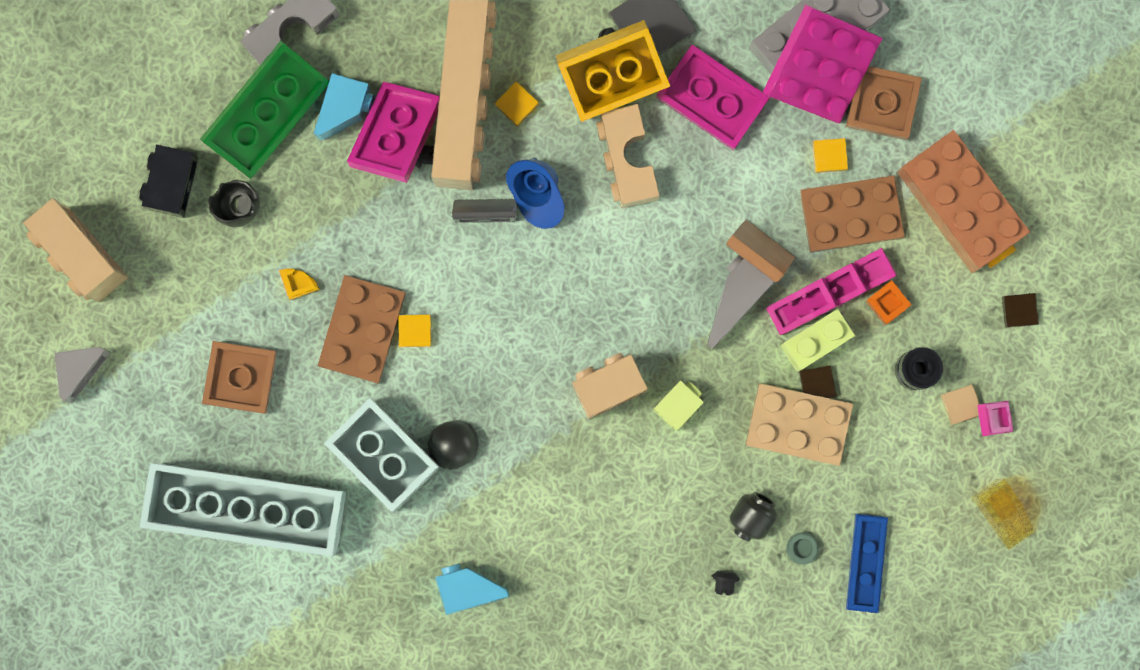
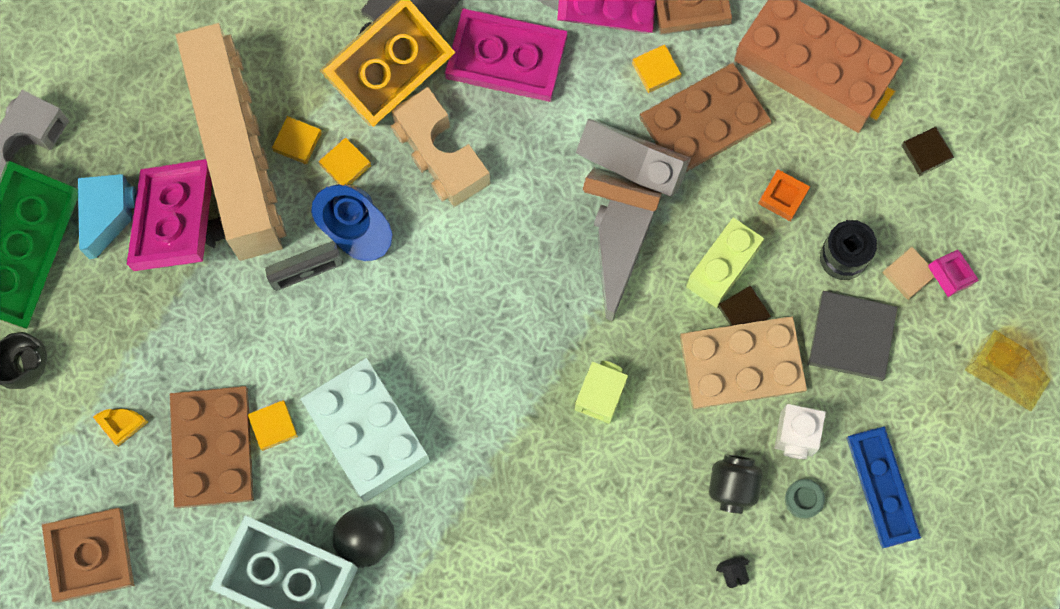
camera: 20 degrees left, 10 degrees down
(484, 364) = (365, 430): none -> light aqua brick
(548, 138) = (345, 163): none -> yellow tile
(608, 386) = (514, 397): tan brick -> none
(780, 226) = (633, 157): none -> light grey slope
(819, 497) = (799, 431): none -> white brick
(831, 291) = (717, 207): dark pink slope -> none
(894, 436) = (852, 335): none -> dark grey tile

